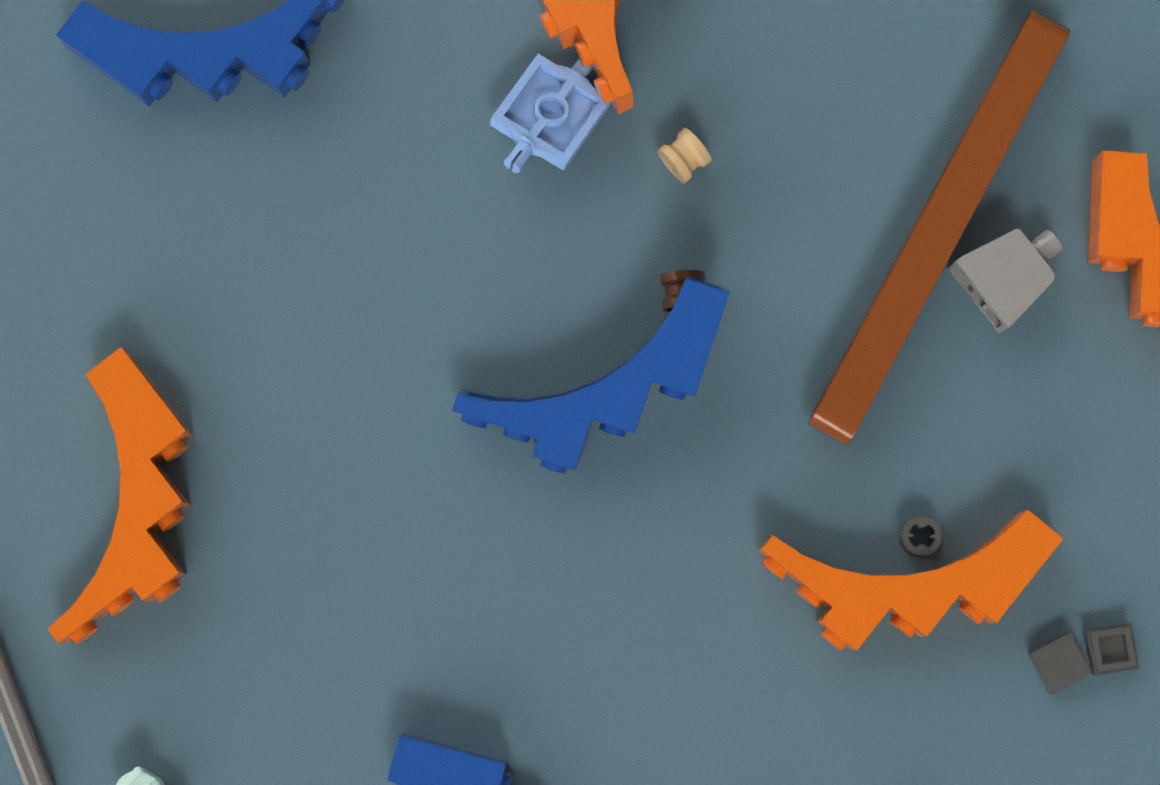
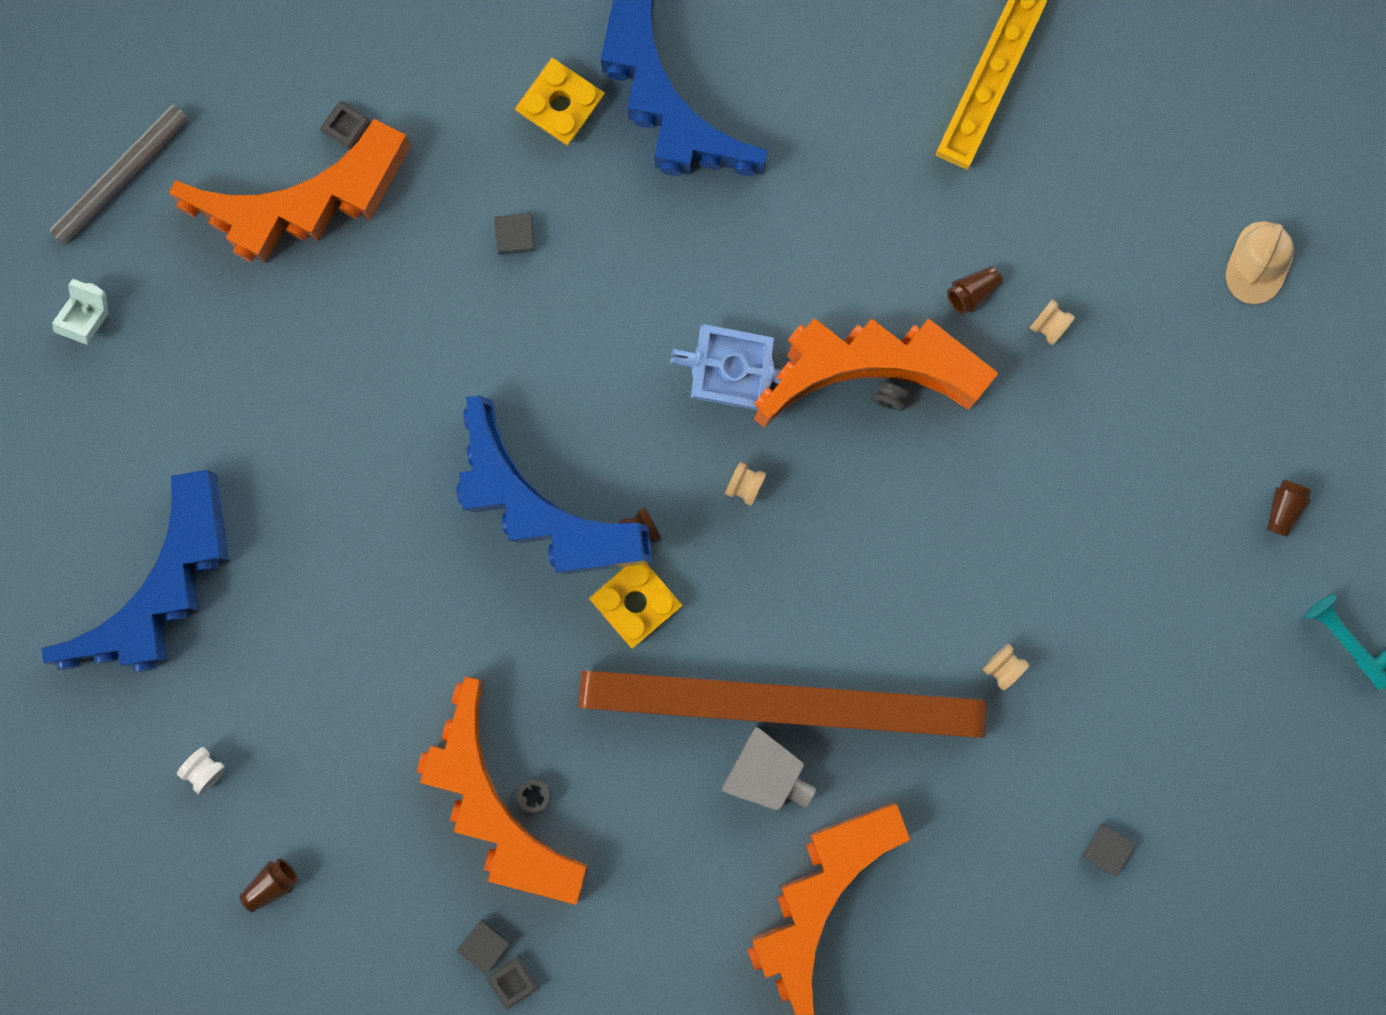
camera: 65 degrees right, 0 degrees up
(72, 414) = (345, 125): none -> dark grey tile
(139, 153) = (554, 82): none -> yellow piece
(287, 282) = (514, 234): none -> dark grey tile
(777, 311) = (635, 626): none -> yellow piece

